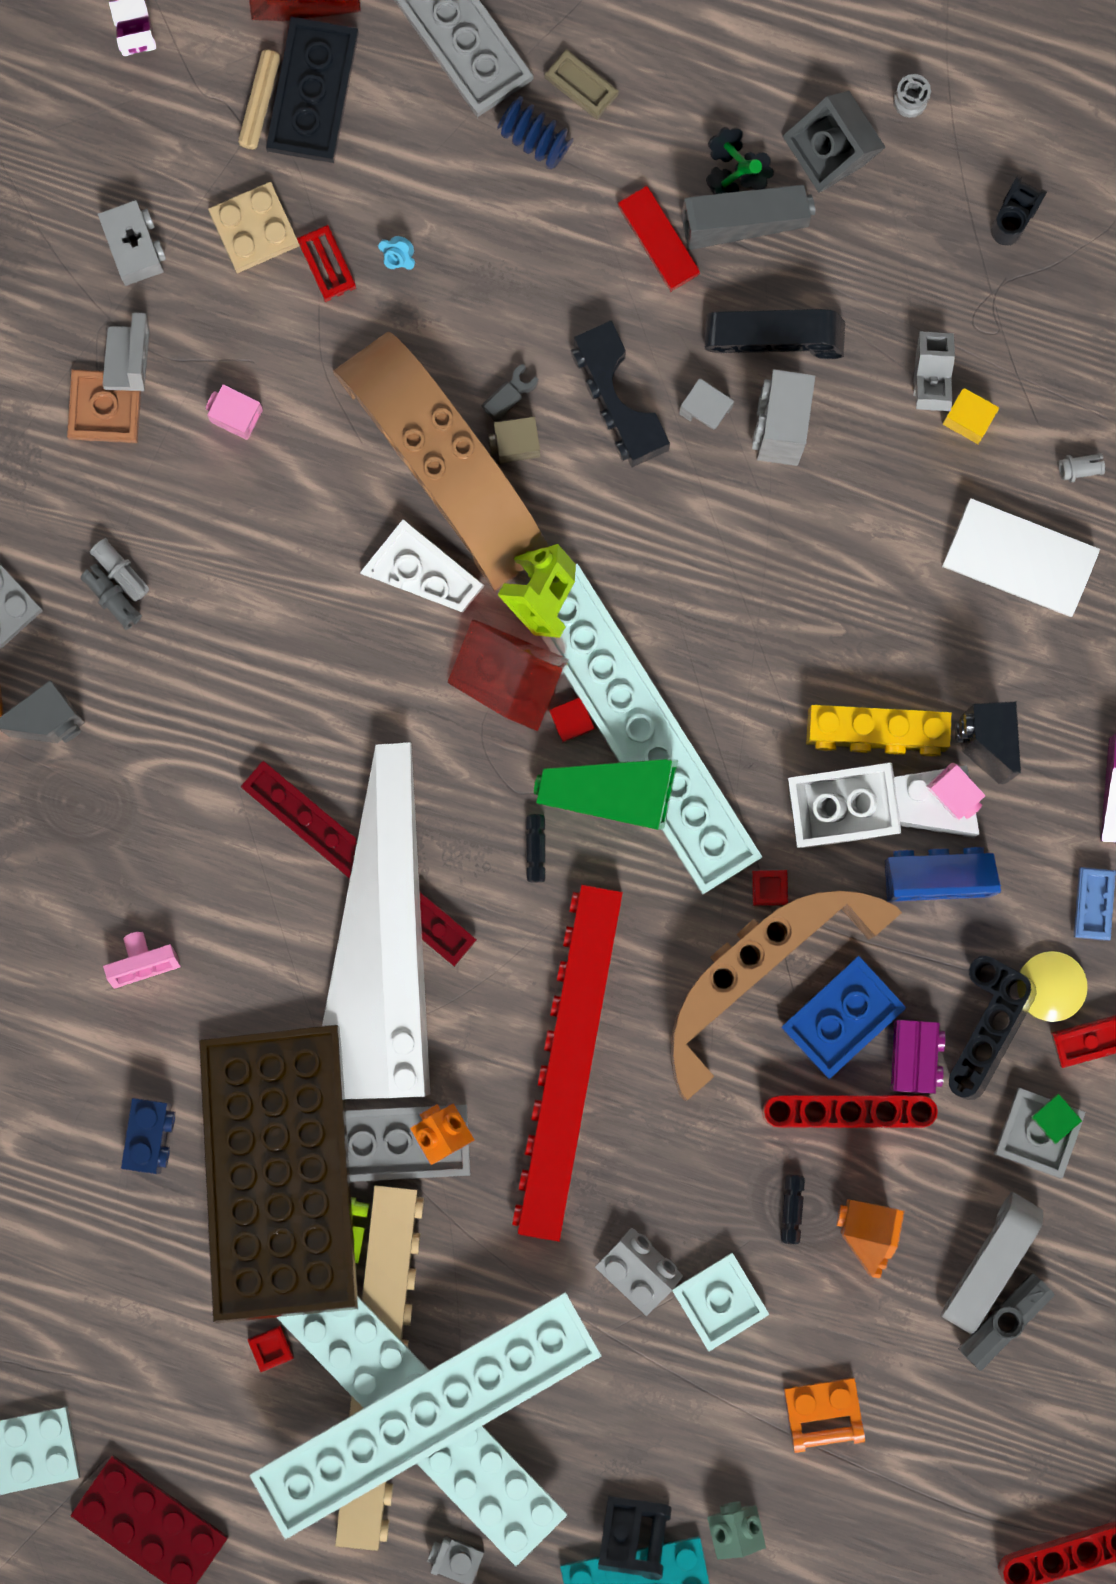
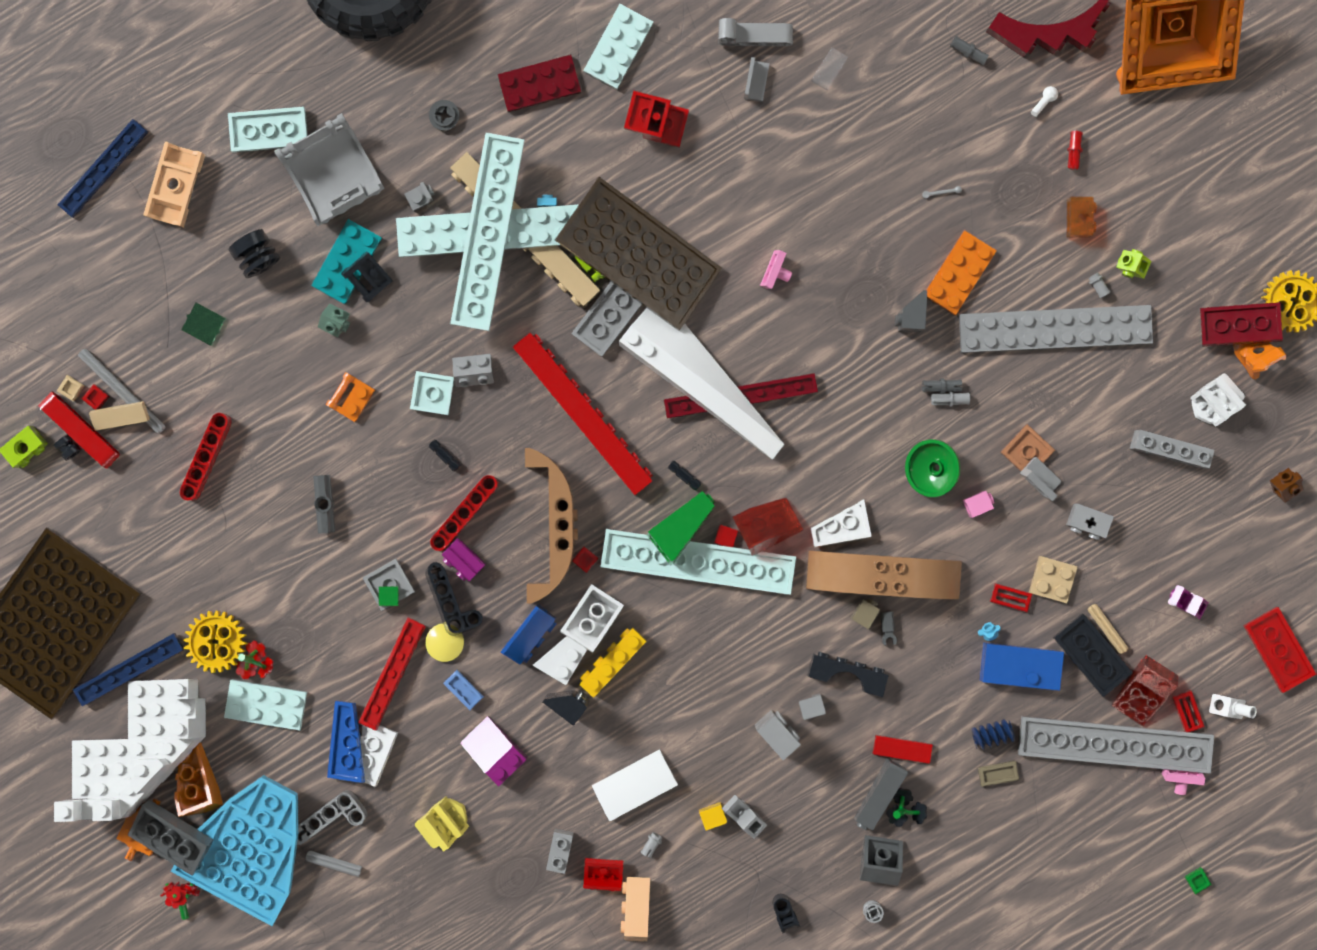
camera: 135 degrees right, 5 degrees up
(62, 1311) = (656, 119): none -> red bracket
(147, 1136) = (700, 213): dark blue brick -> none
(257, 519) = (922, 472): none -> green dish
(270, 1348) = (569, 192): red tile -> none
(311, 1369) = (546, 201): none -> medium azure plate
(409, 171) = (1021, 666): none -> blue brick
(441, 1132) = (598, 335): orange brick -> none
(543, 597) = (787, 568): lime tile -> none
(776, 331) = (818, 764): black beam -> none
(843, 1017) = (505, 544): blue plate -> none
(871, 1233) = (407, 479): orange wedge -> none
(956, 792) = (557, 669): bright pink brick -> none
(994, 1263) = (352, 520): light grey beam -> none

